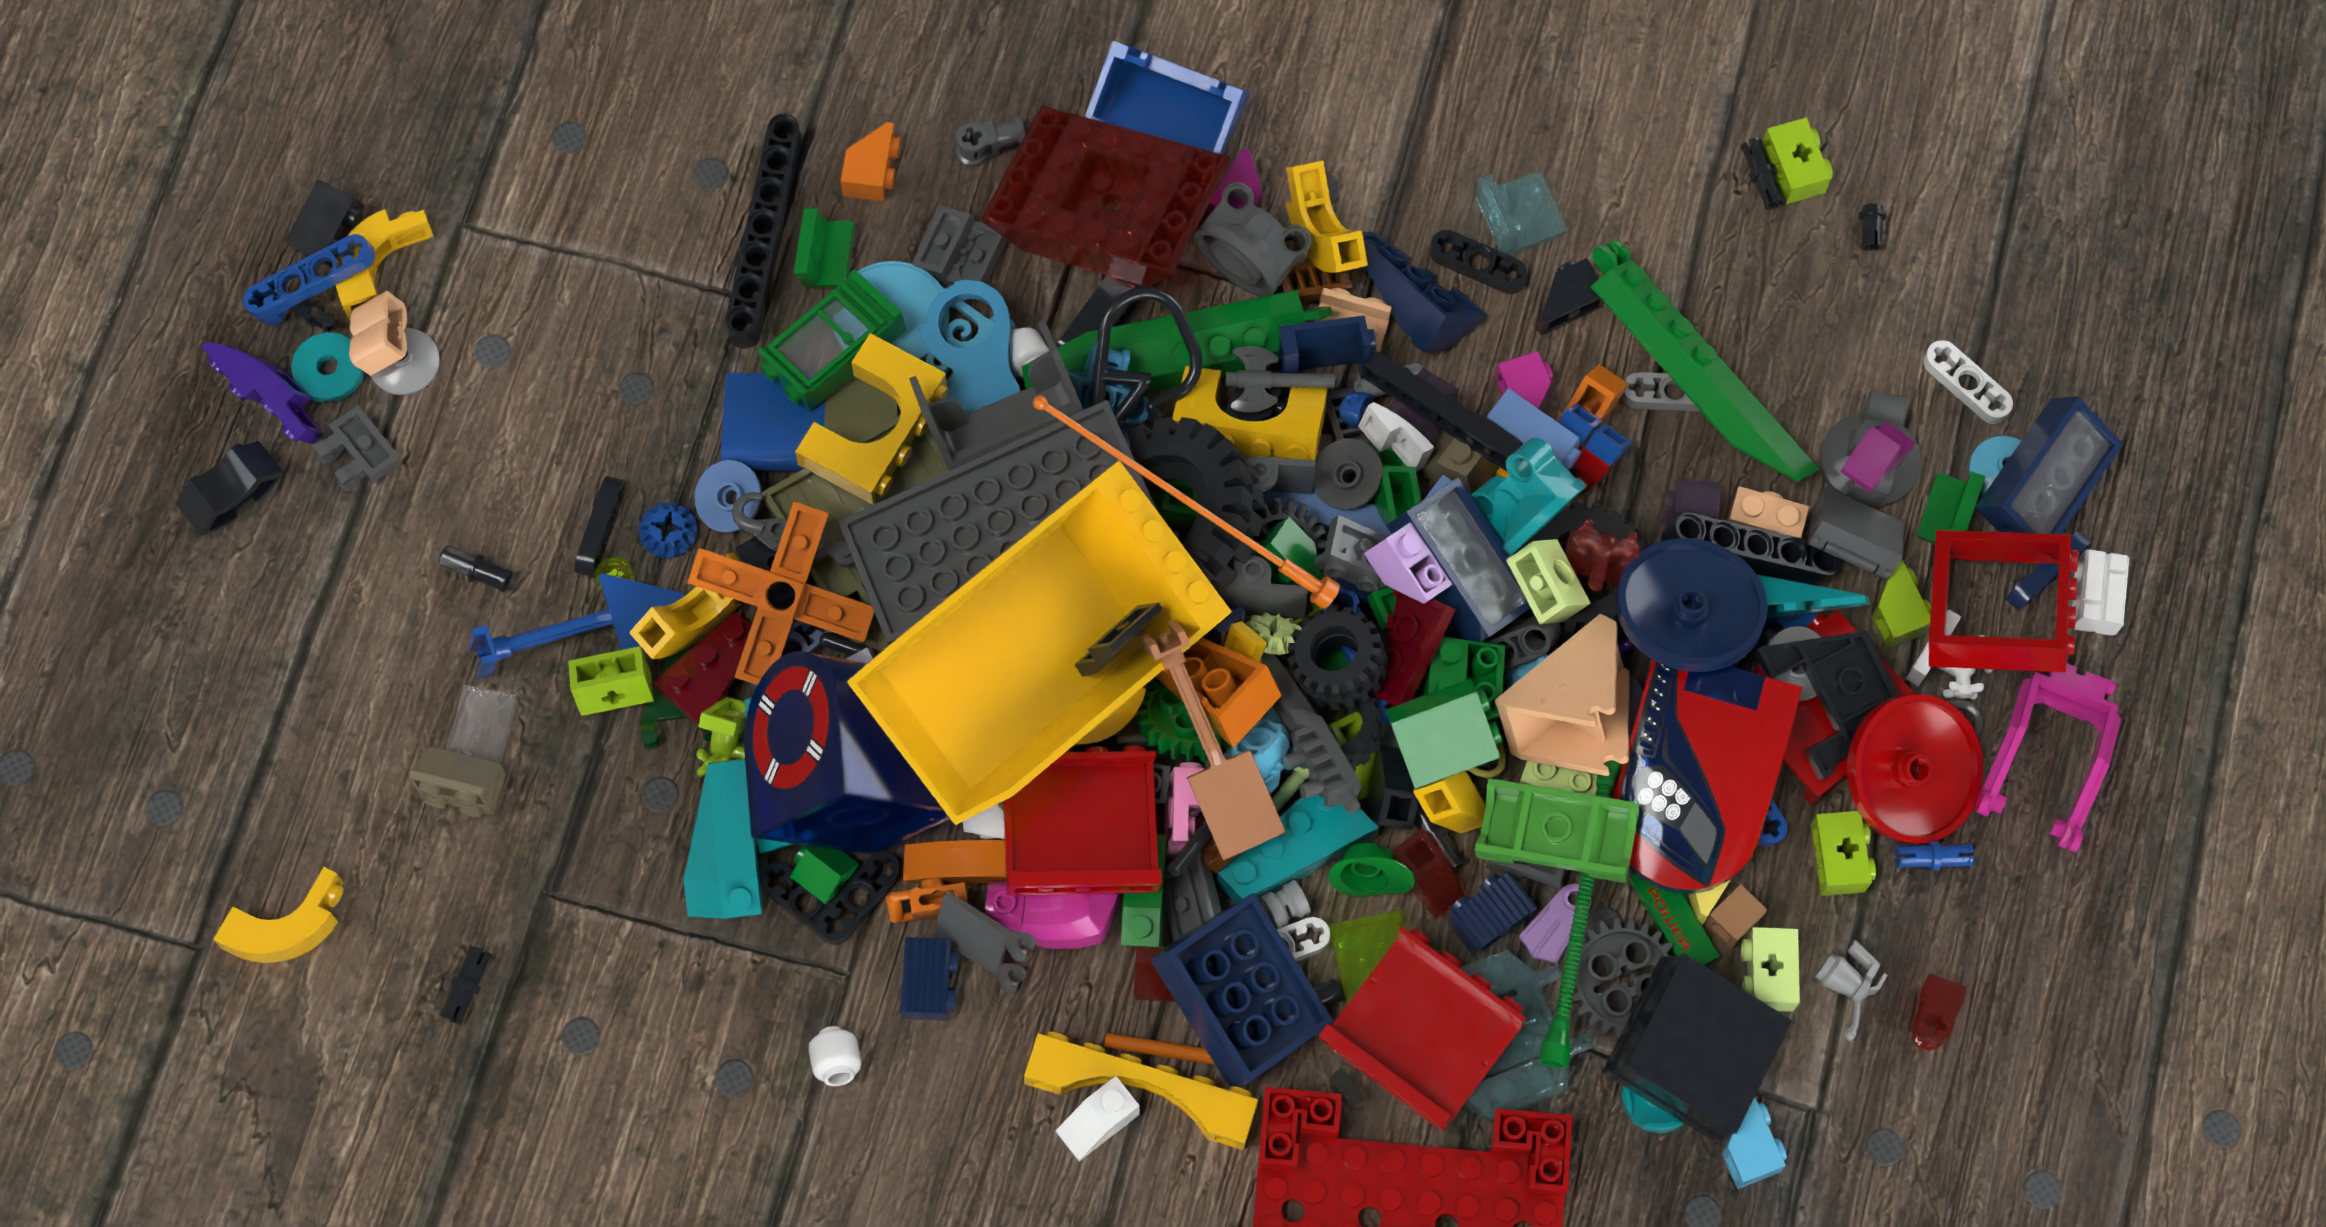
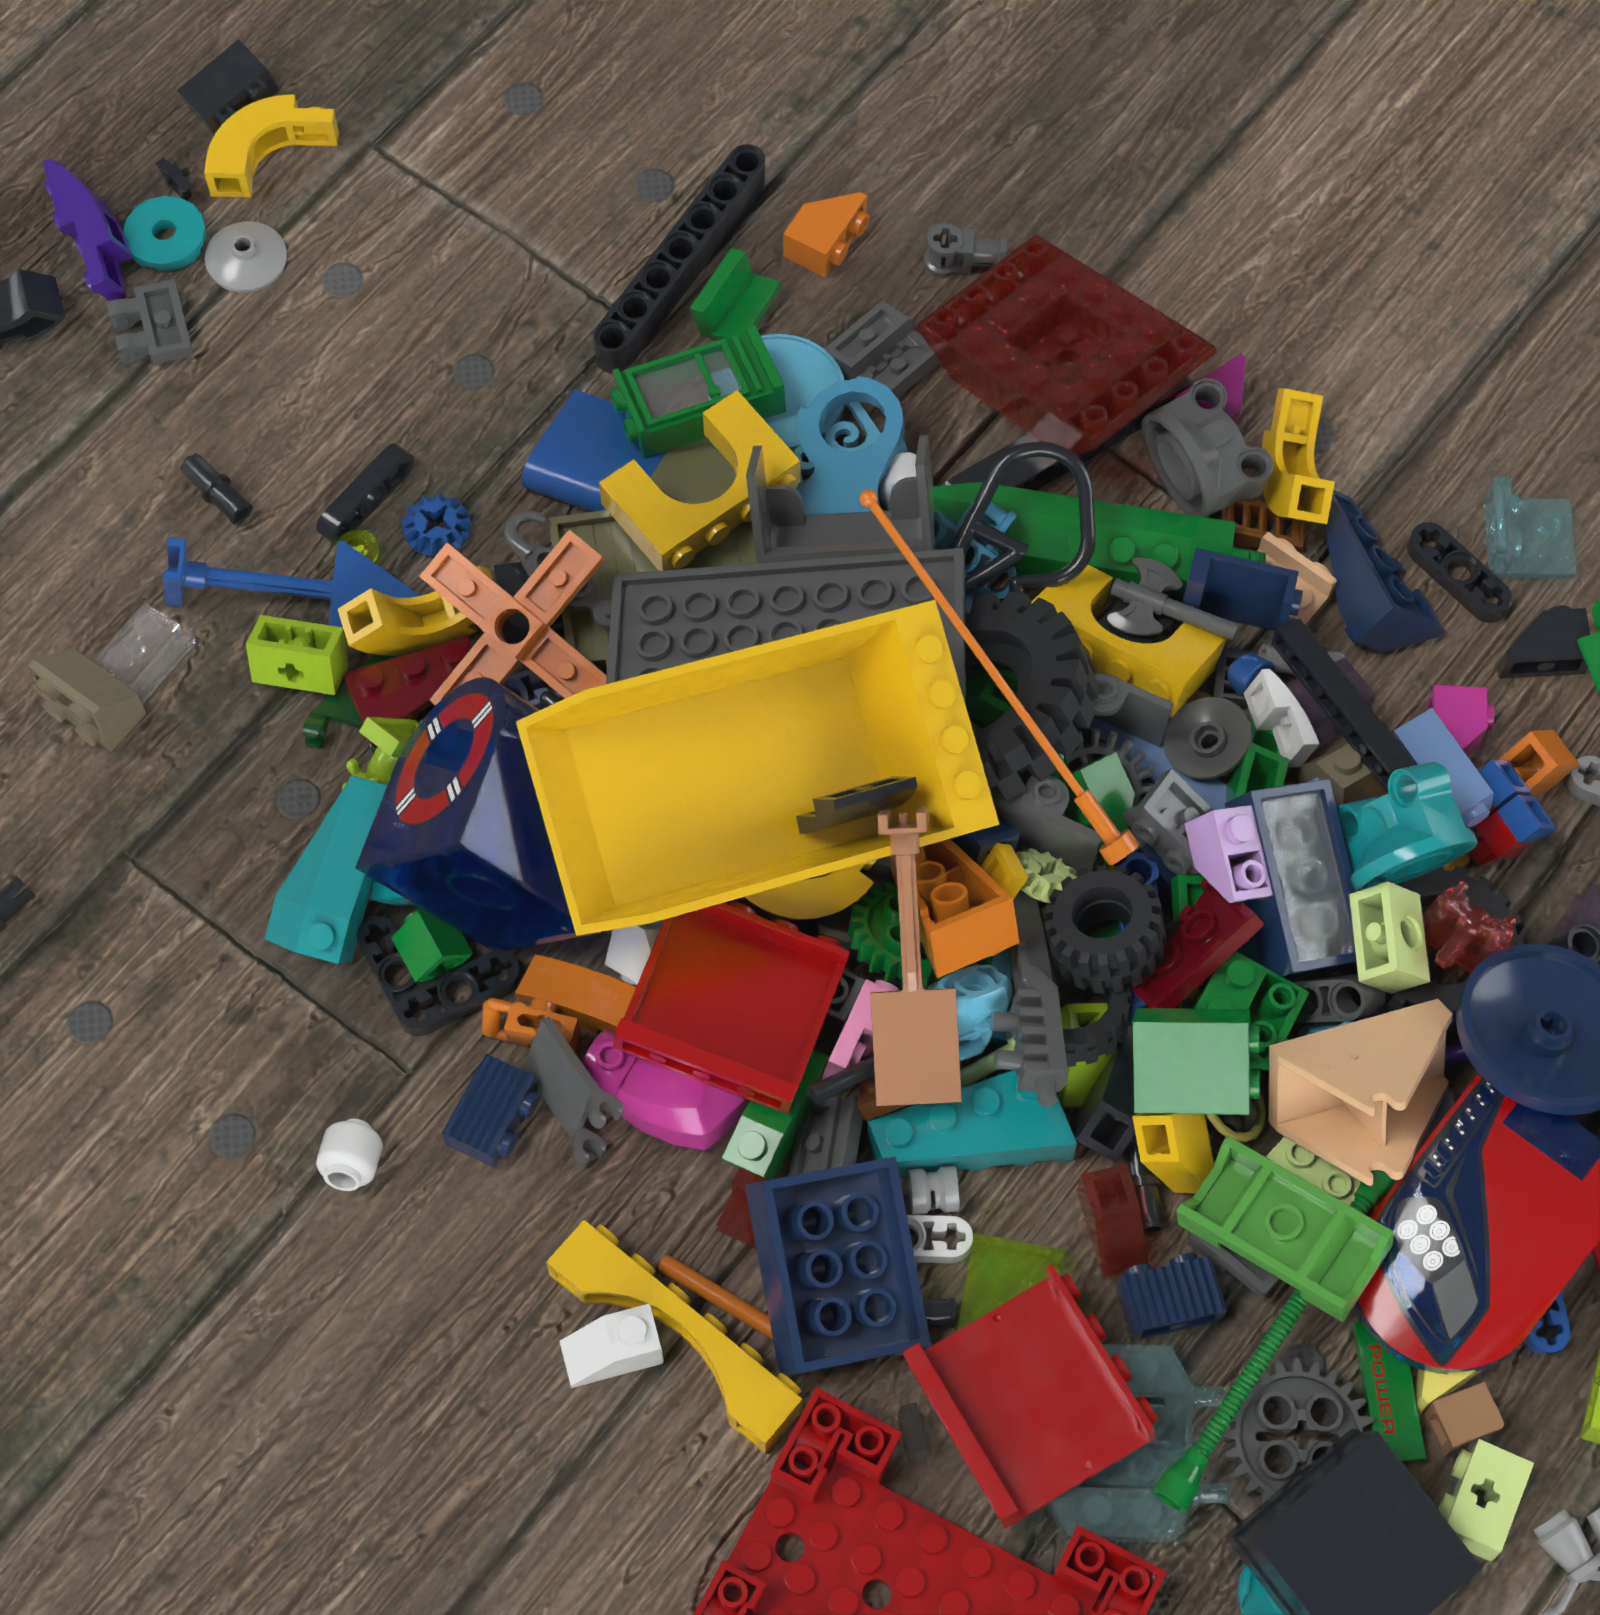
camera: 25 degrees right, 5 degrees down
(270, 307) = (135, 141): blue beam -> none
(378, 333) = (228, 213): light nougat brick -> none
(715, 492) = (506, 498): medium blue dish -> none
(1166, 99) = (1177, 273): blue windscreen -> none
(1370, 871) = (1046, 1192): green piece -> none
(1549, 931) = (1229, 1346): lavender piece -> none

